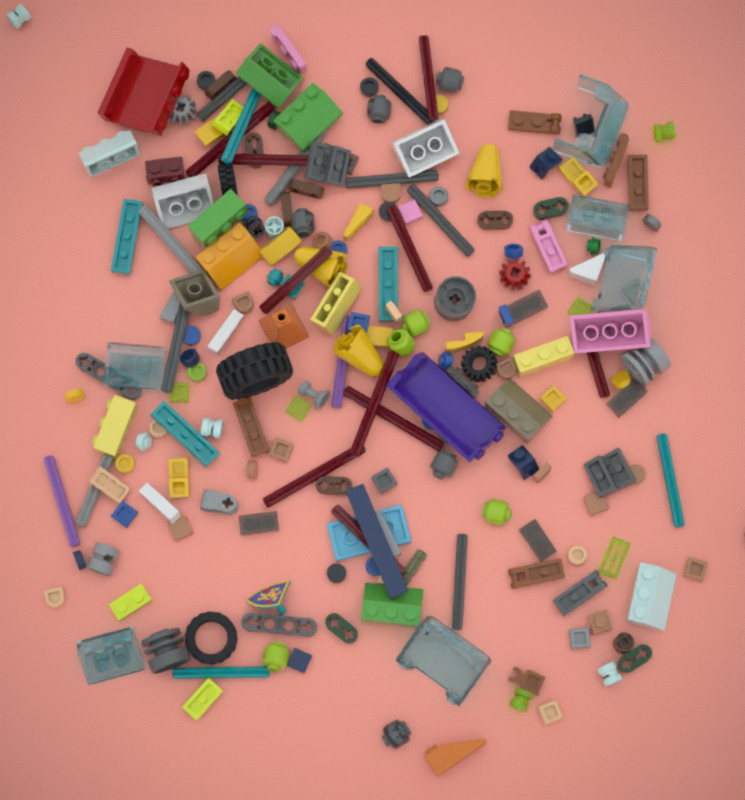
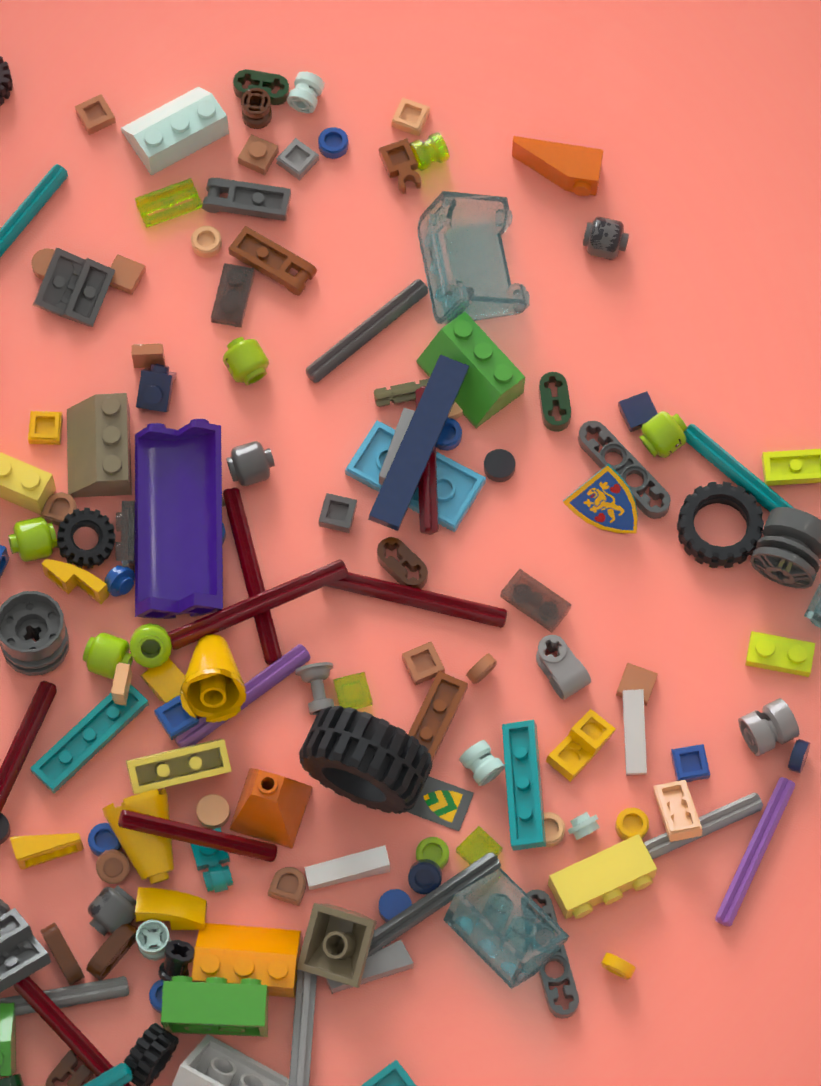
camera: 140 degrees left, 10 degrees down
(213, 399) = (442, 803): none -> dark grey sticker
(305, 303) = (213, 811): none -> light nougat tile
(572, 663) = (333, 142): none -> blue tile

